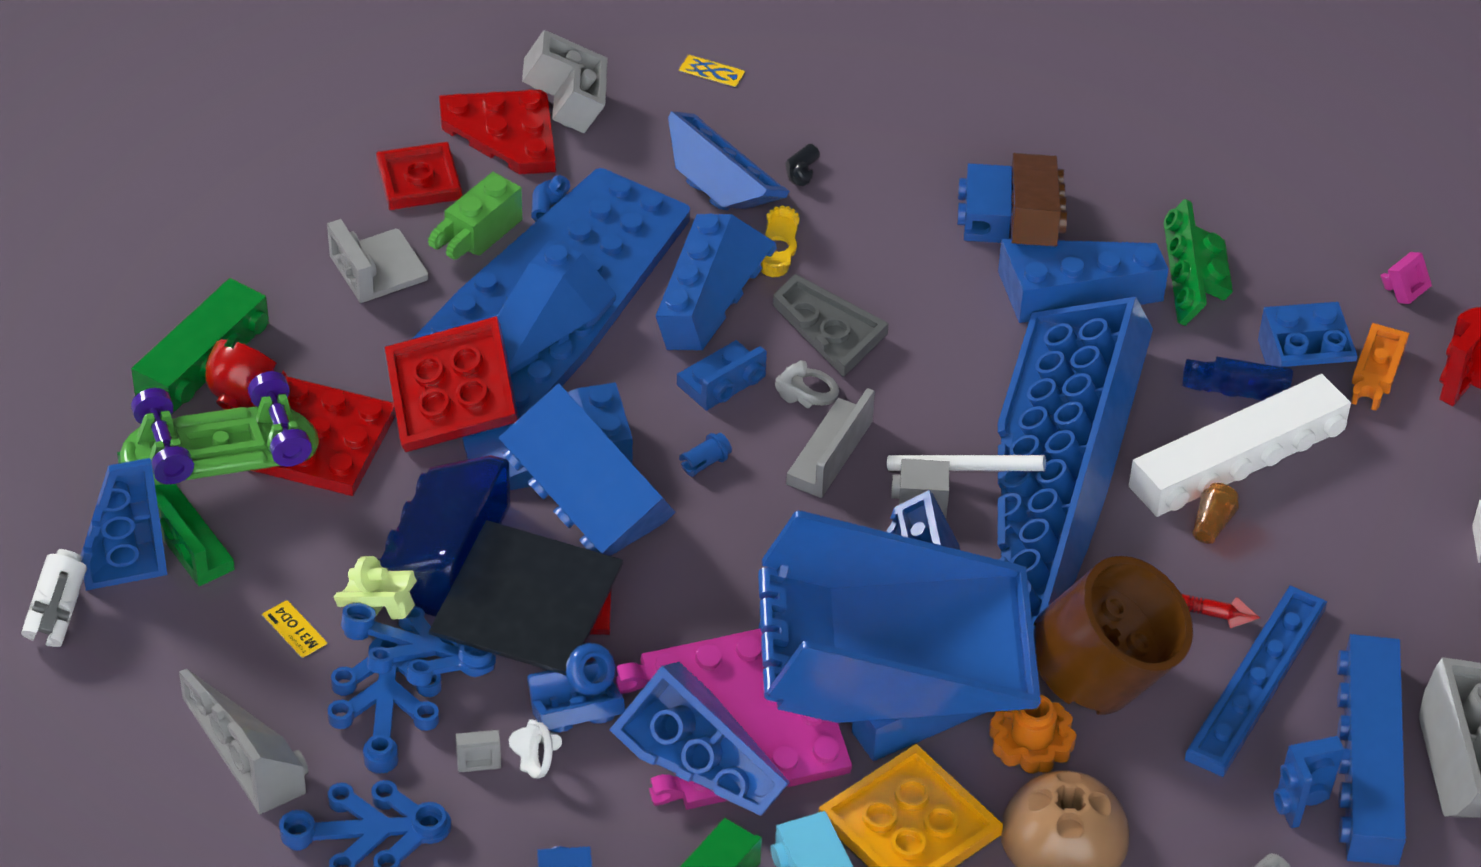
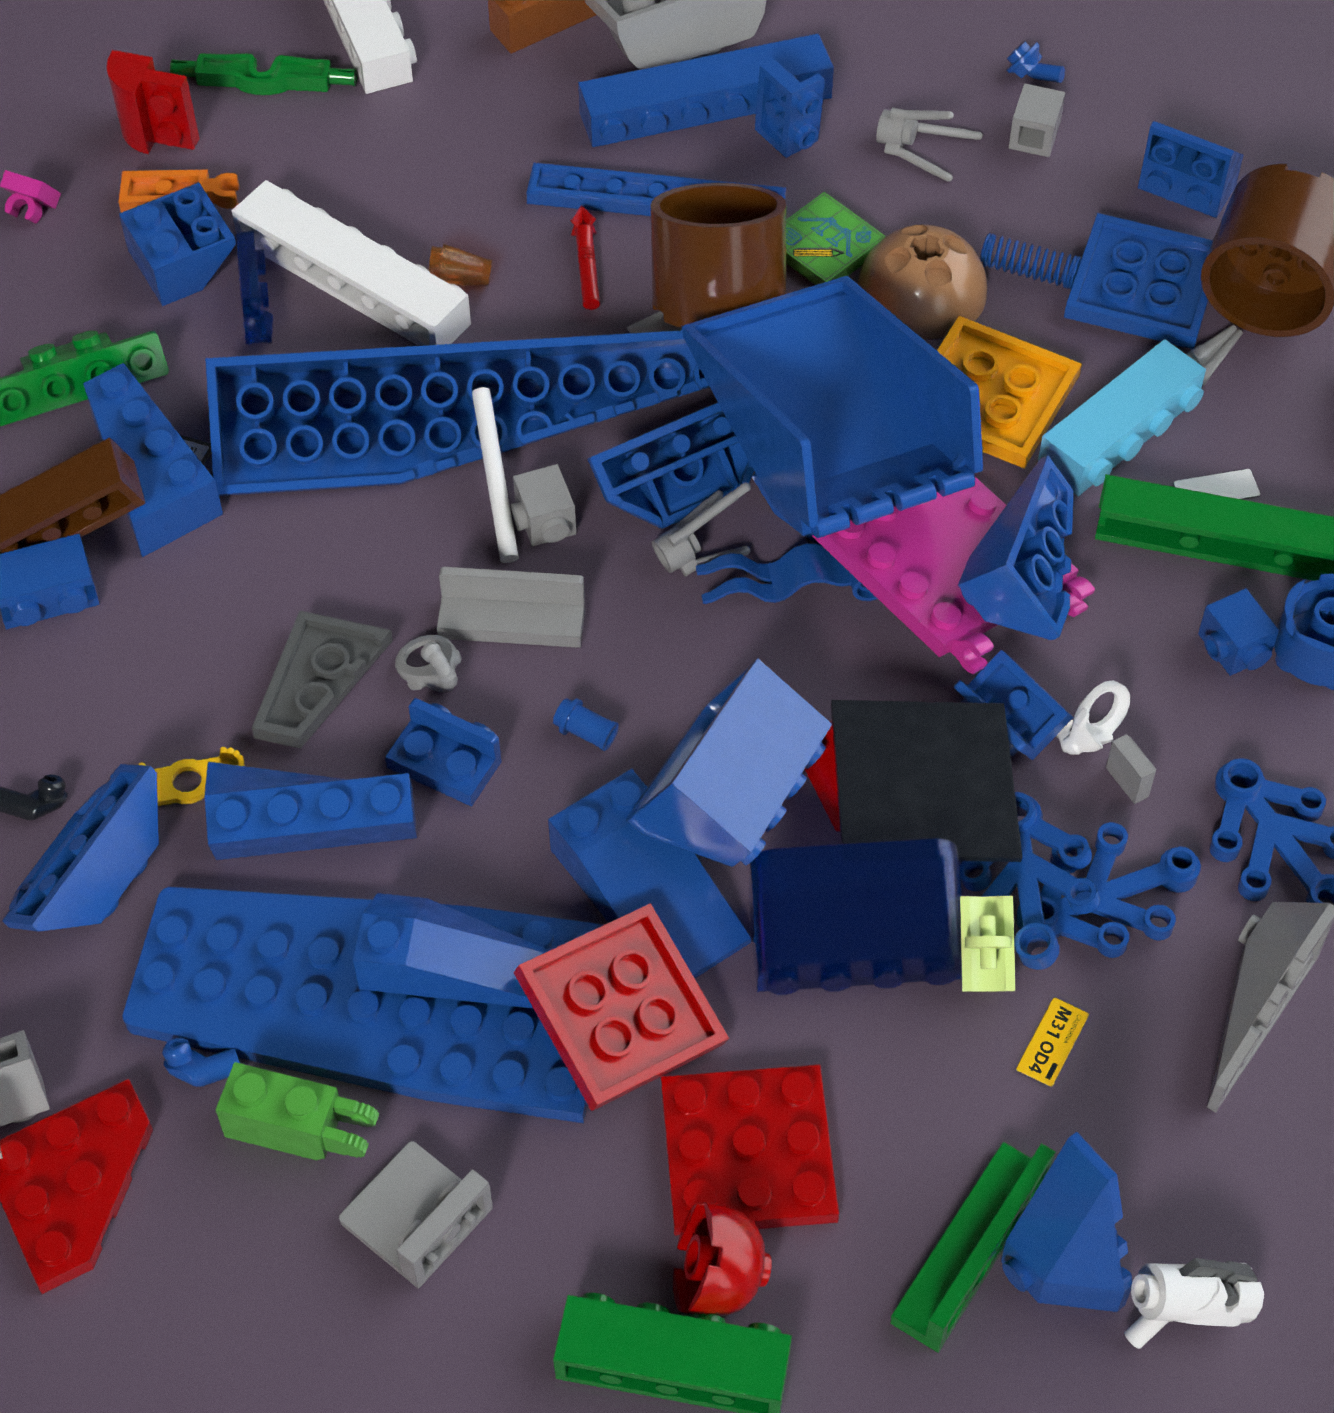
camera: 110 degrees left, 10 degrees up
(220, 439) = (872, 1211): bright green piece -> none
(418, 175) = (210, 1248): red tile -> none
(576, 664) = (988, 684): blue piece -> none
(1148, 776) = (827, 240): none -> bright green tile

